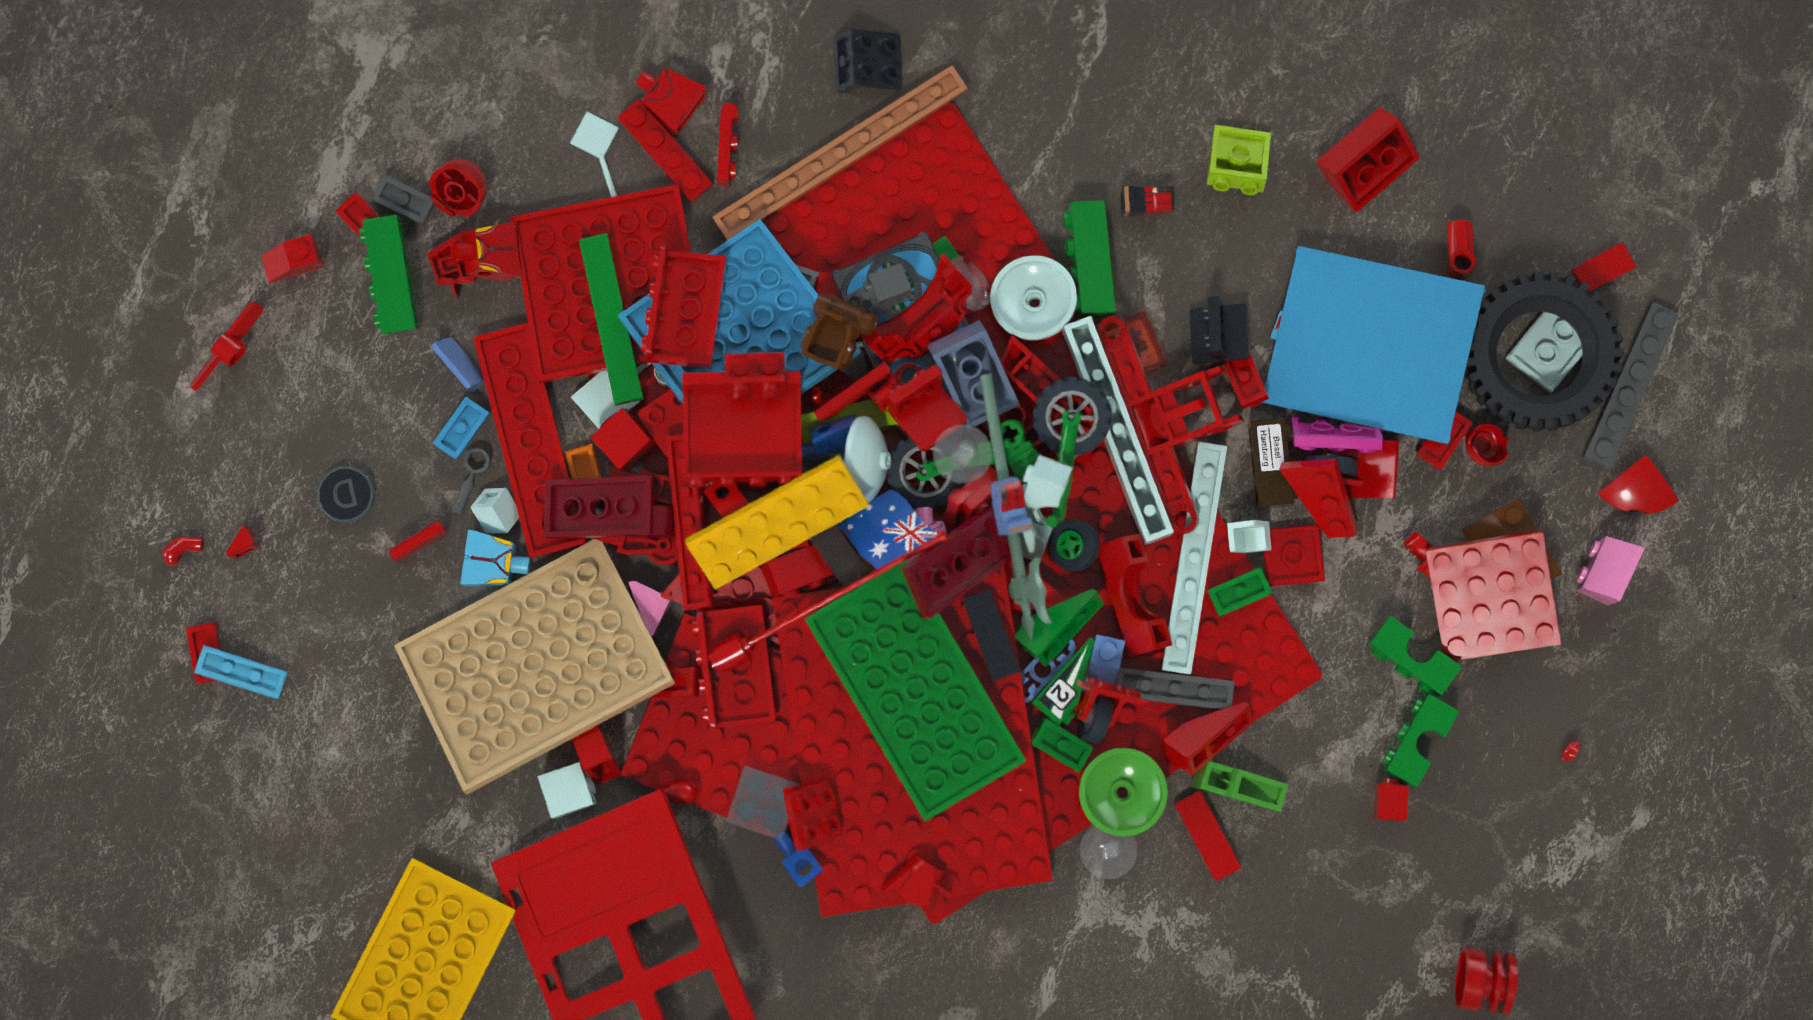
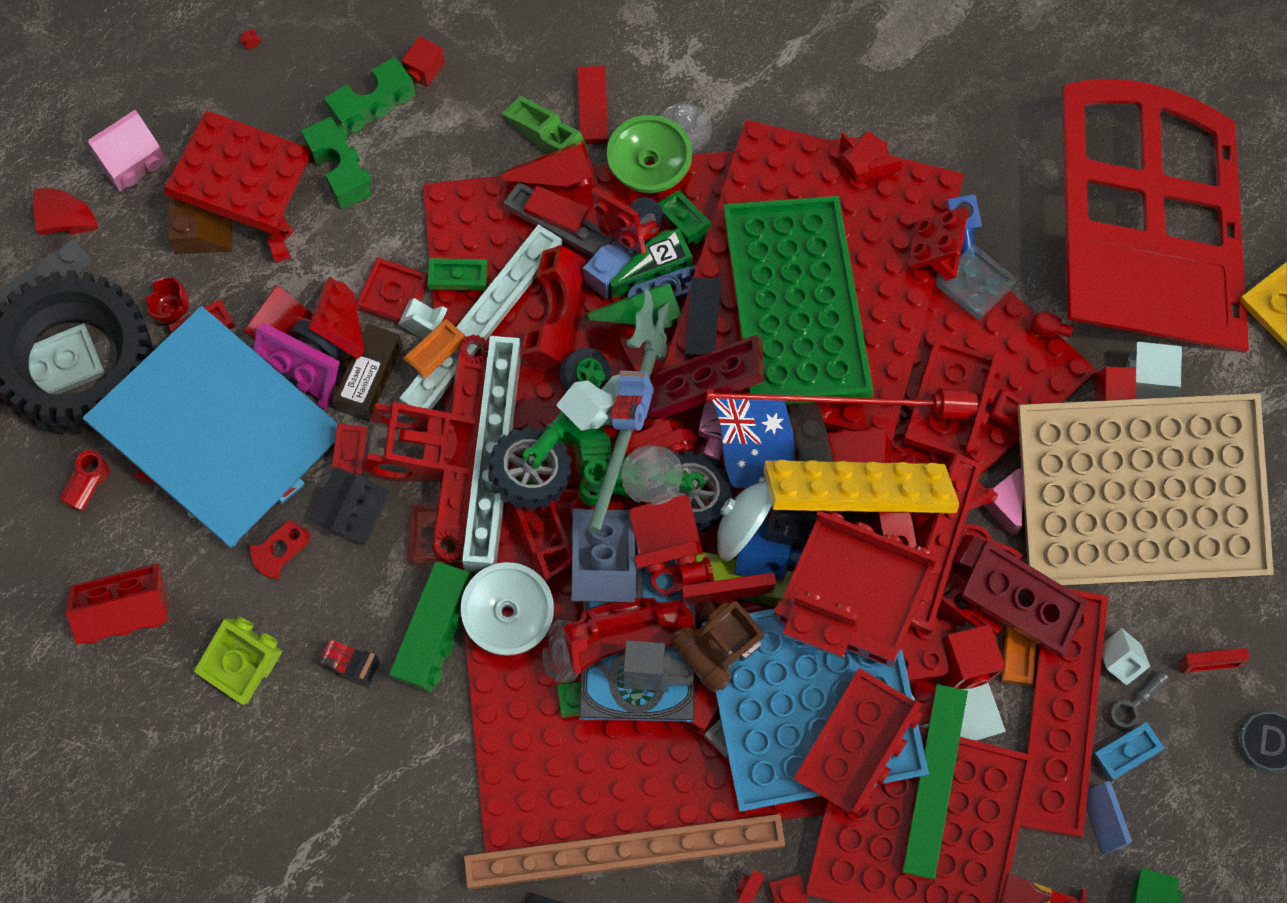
camera: 155 degrees left, 15 degrees down
(490, 561) = (1147, 610): medium azure torso -> none
(1180, 693) = (556, 210): none -> red tile
(1219, 505) = (435, 349): none -> orange tile
(1262, 255) = (263, 555): none -> red piece

